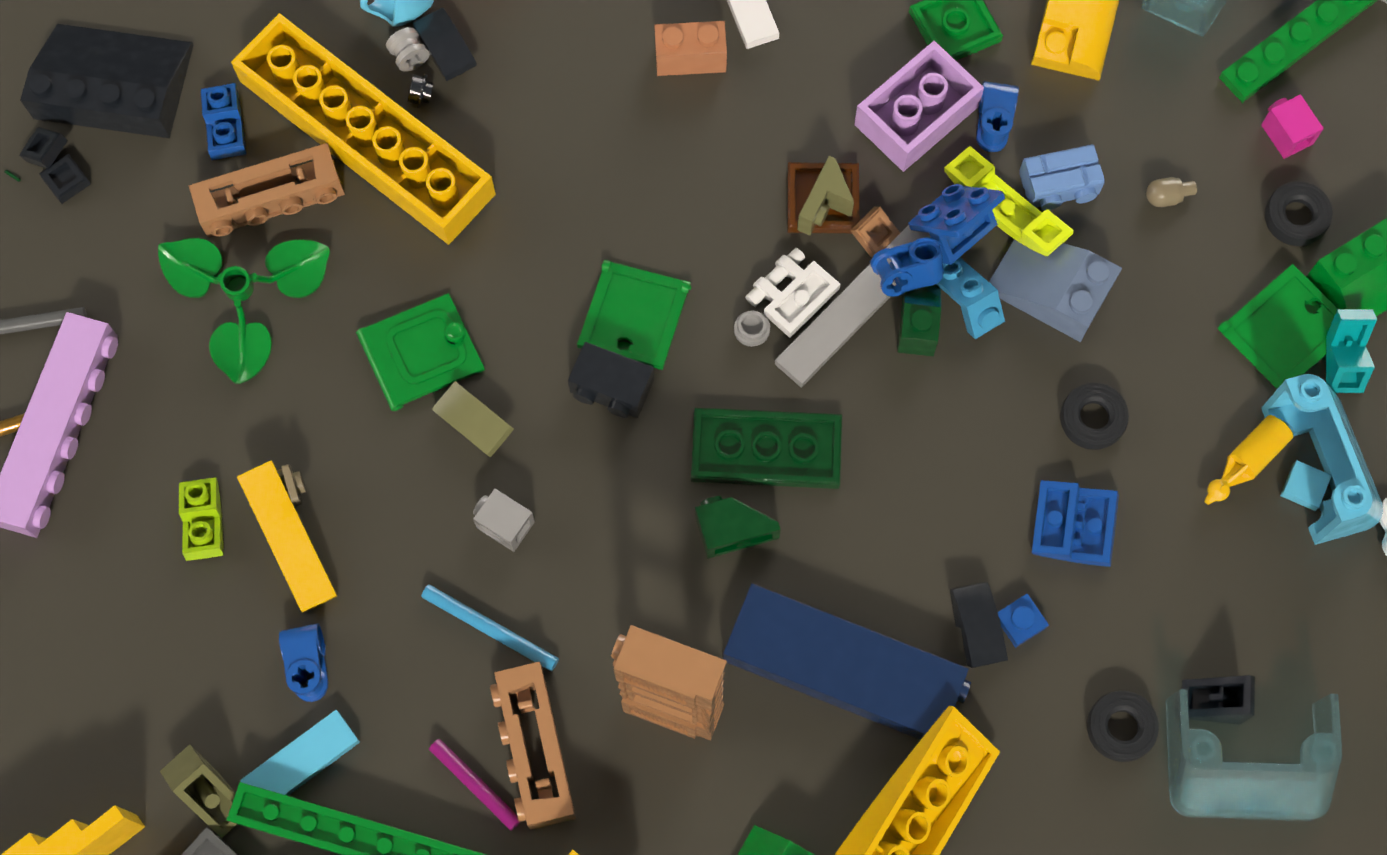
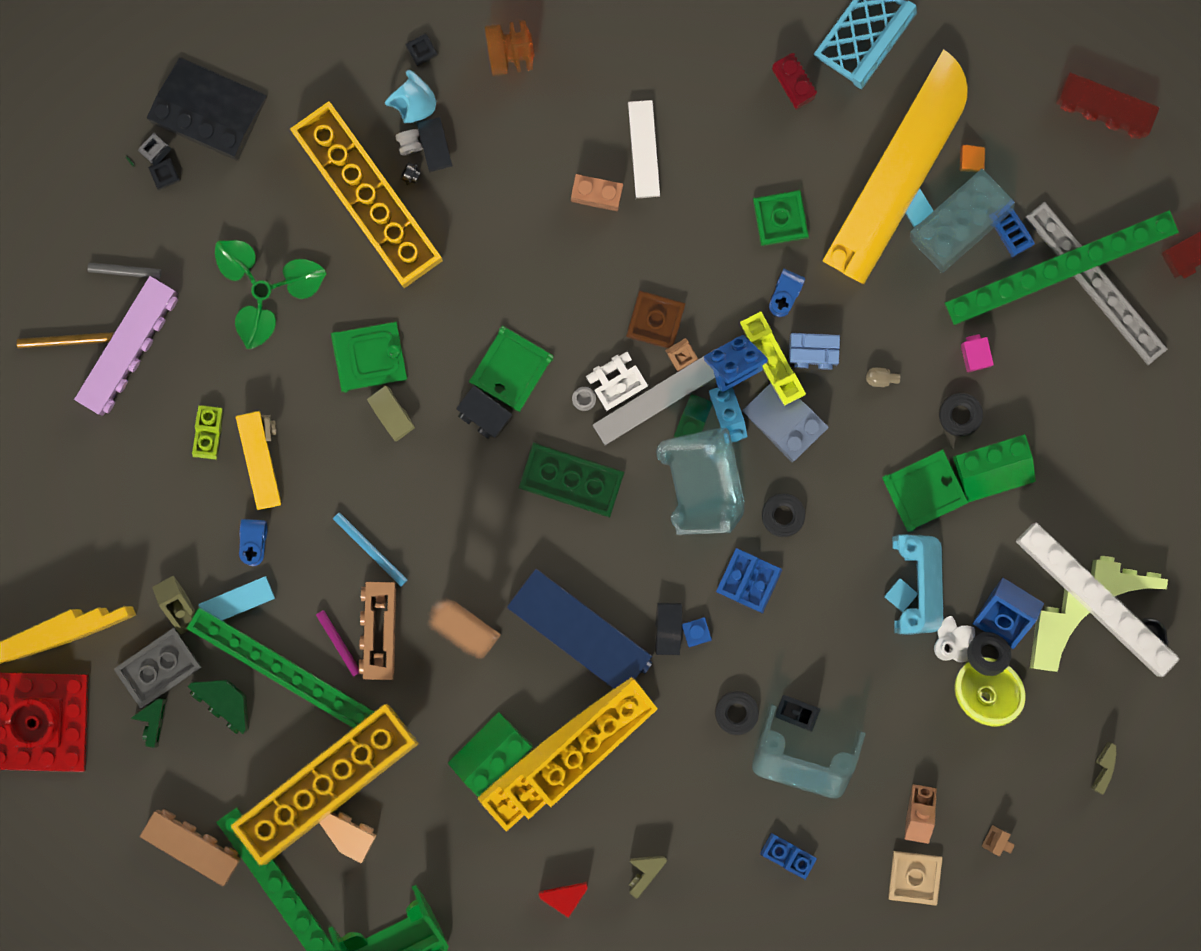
camera: 15 degrees right, 15 degrees up
(223, 121) = (276, 160): blue slope -> none
(266, 191) = (307, 231): medium nougat brick -> none
(503, 519) = (394, 484): light grey brick -> none
(732, 526) = (533, 526): dark green slope -> none
(827, 193) = (659, 321): olive slope -> none
(911, 266) = (692, 389): blue piece -> none
(918, 106) = (734, 276): lavender brick -> none
(963, 390) = (704, 482): none -> clear light blue windscreen
(1250, 457) = (870, 569): yellow wheel -> none
(1346, 350) = (956, 518): teal slope -> none

